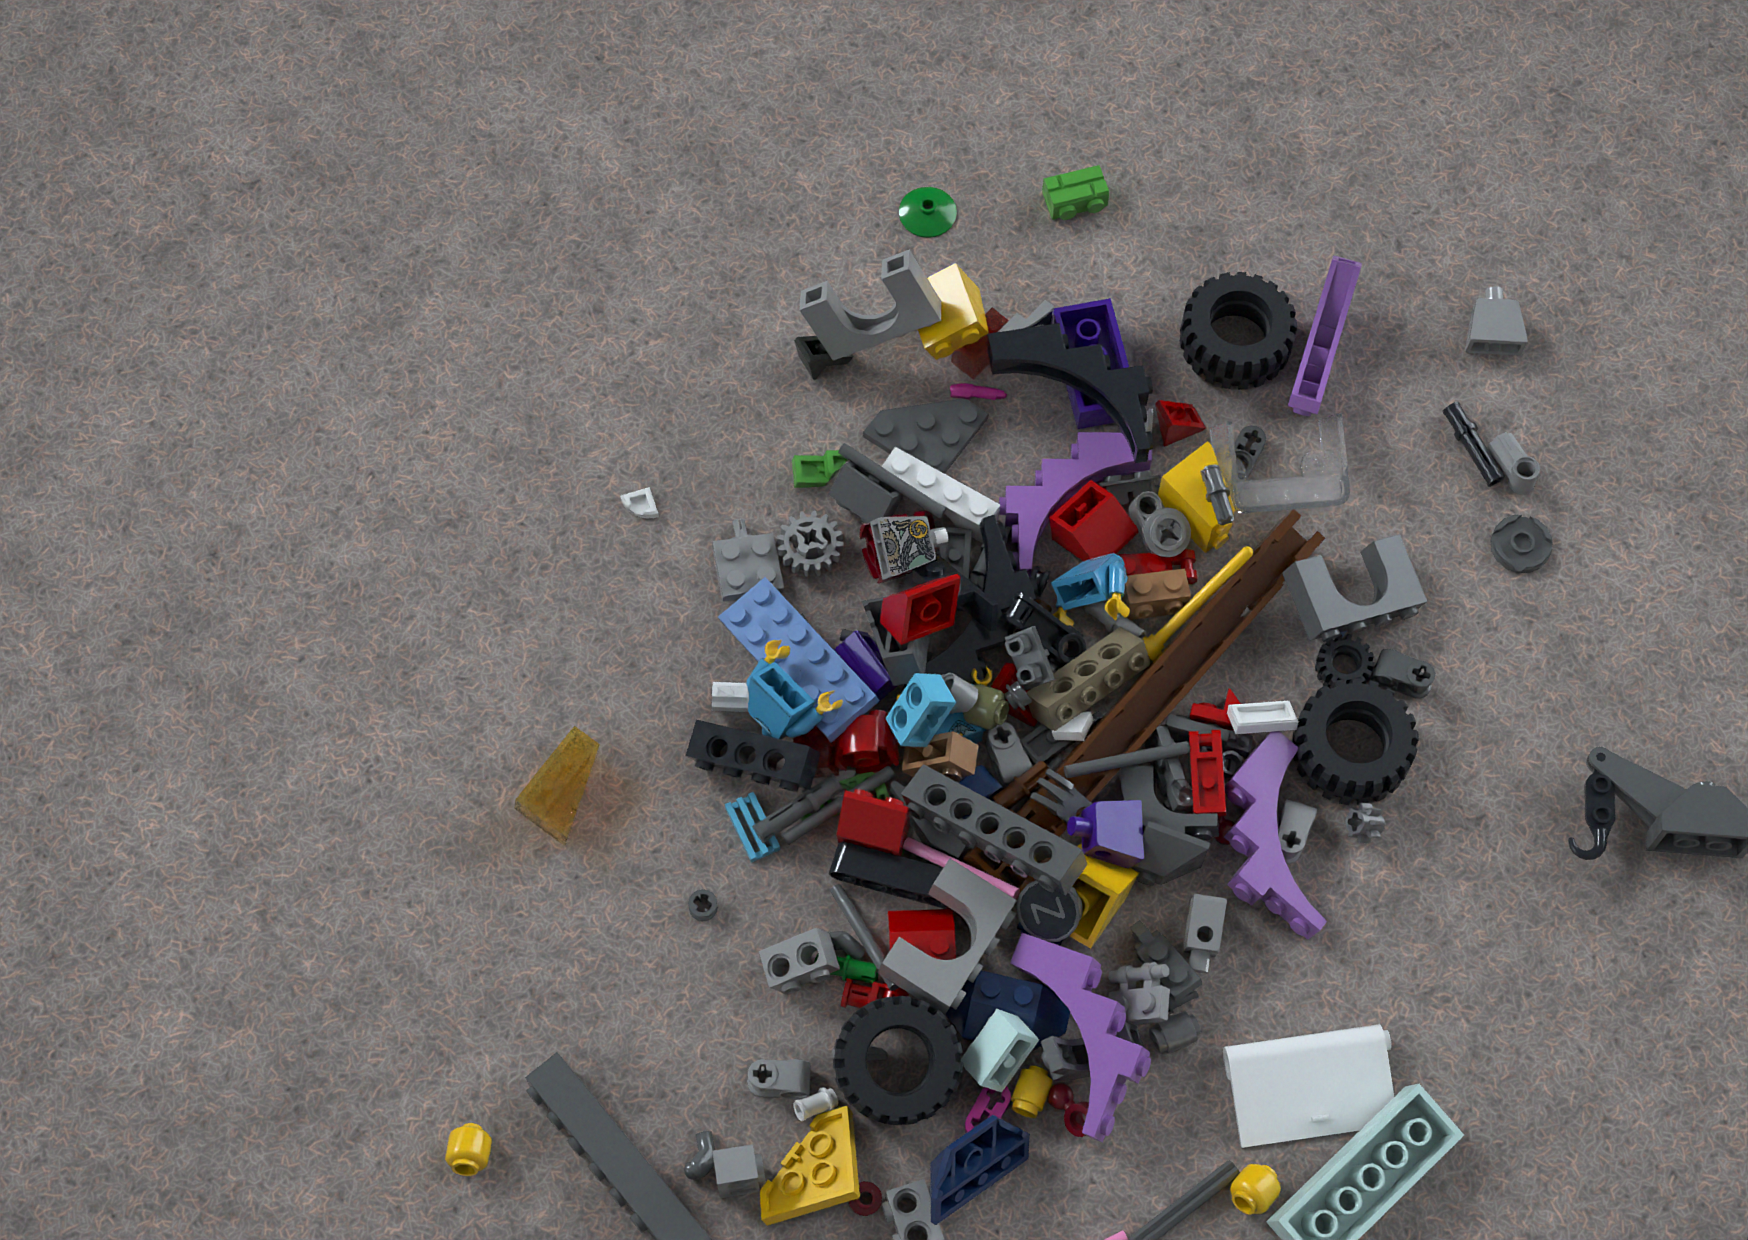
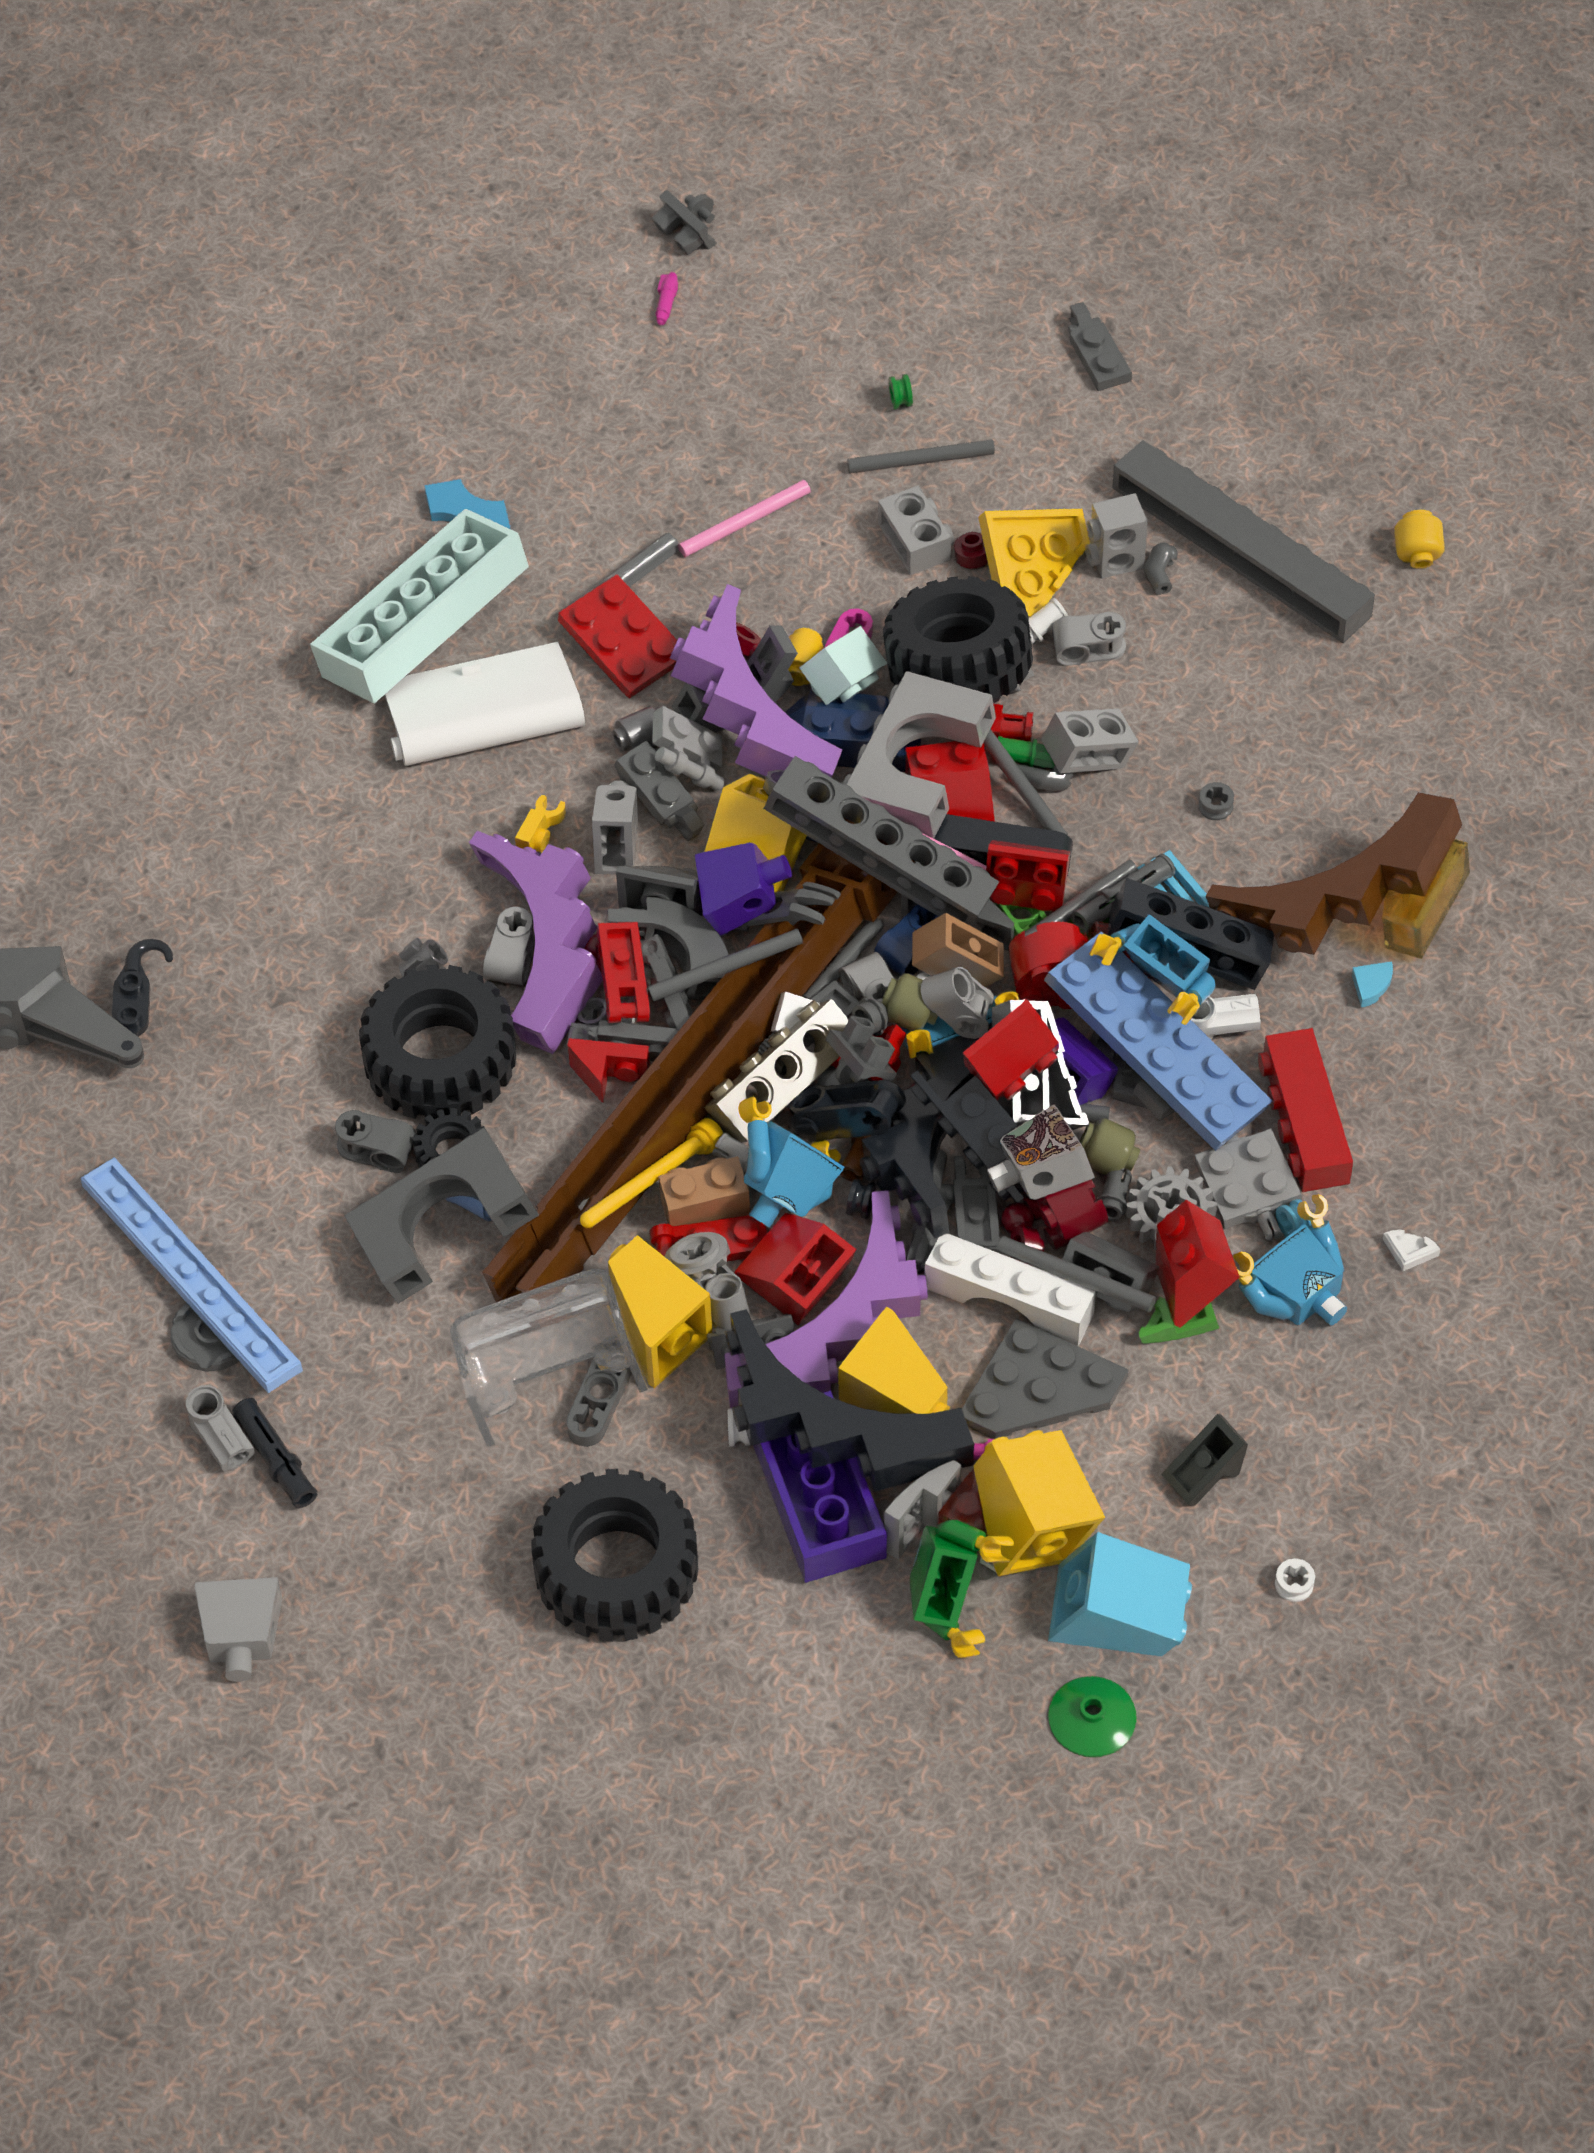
camera: 175 degrees right, 10 degrees down
(615, 721) = (1372, 981): none -> medium azure tile
(620, 763) = (1352, 891): none -> reddish brown arch
(692, 611) = (1306, 1110): none -> red brick
(721, 527) = (1288, 1218): none -> medium azure bush
(731, 480) = (1298, 1273): none -> dark azure torso
(778, 269) = (1295, 1592): none -> white bush
(803, 475) = (1192, 1260): none -> red slope
(846, 596) = (1109, 1146): none -> olive head
(848, 332) = (1118, 1456): light grey arch -> none
(849, 564) = (1115, 1193): none -> dark grey pin
(884, 243) = (1120, 1598): none -> medium azure slope
(920, 710) = (990, 958): medium azure brick -> none
(975, 1164) = (863, 563): dark blue wedge -> none
(1014, 282) = (943, 1577): none -> green torso
(1021, 786) = (851, 947): reddish brown axle -> none
(1032, 419) = (891, 1372): none -> yellow slope
(1075, 193) = (873, 1755): bright green brick -> none
(1177, 421) = (689, 1427): red slope -> none
(1185, 1136) = (620, 635): none -> red plate
(1217, 494) = (633, 1263): dark grey axle -> none
(1255, 1189) = (541, 595): yellow head -> none
(1262, 717) = (557, 1040): white tile -> none
(1270, 936) = (534, 828): none -> yellow plate
(1324, 336) = (494, 1543): medium lavender arch -> none
(1541, 584) = (192, 1275): none -> light blue tile

